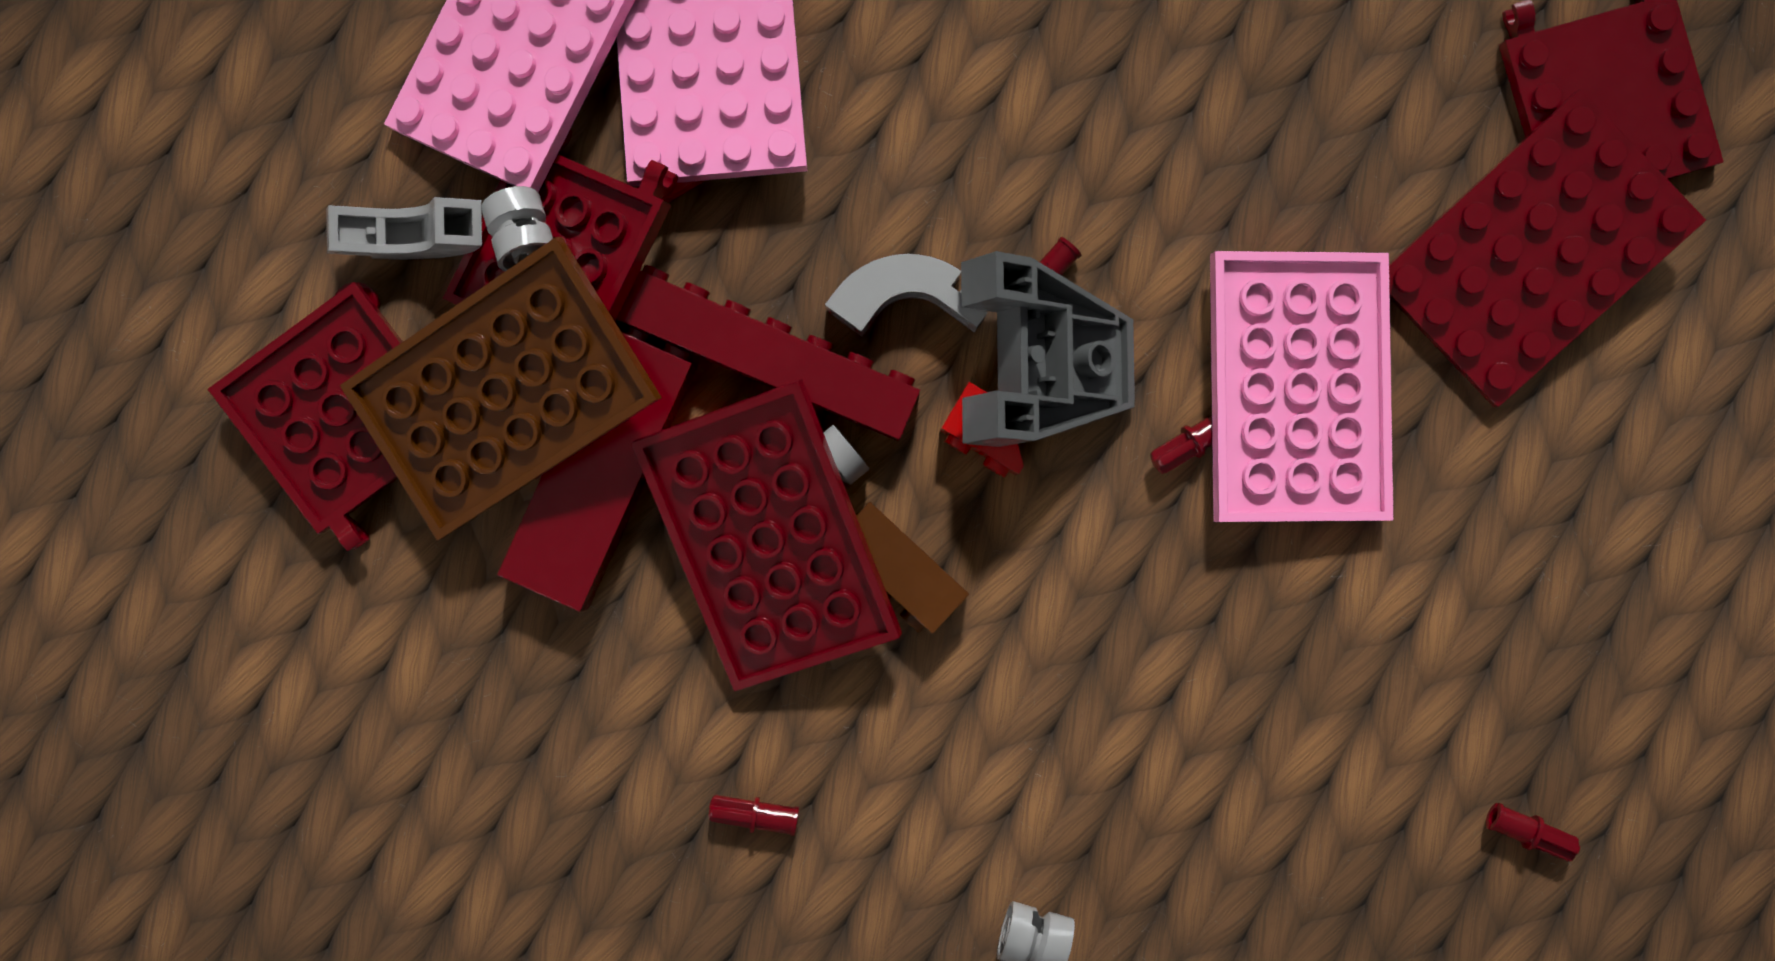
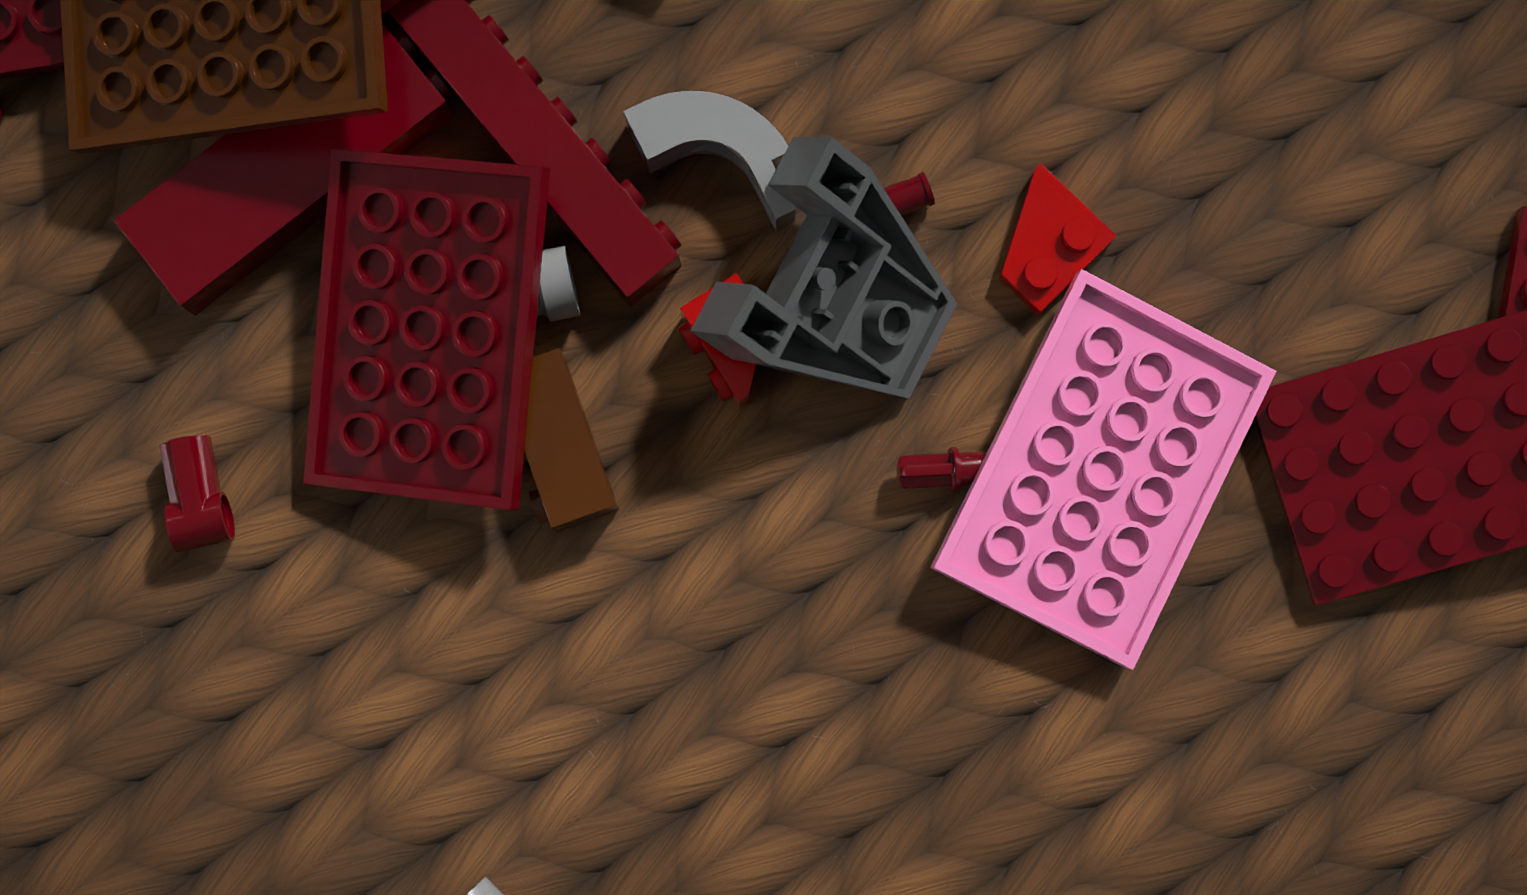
camera: 30 degrees right, 5 degrees down
(668, 748) = (197, 507): none -> dark red piece
(753, 814) = (252, 632): dark red axle -> none
(1178, 240) = (1051, 241): none -> red wing

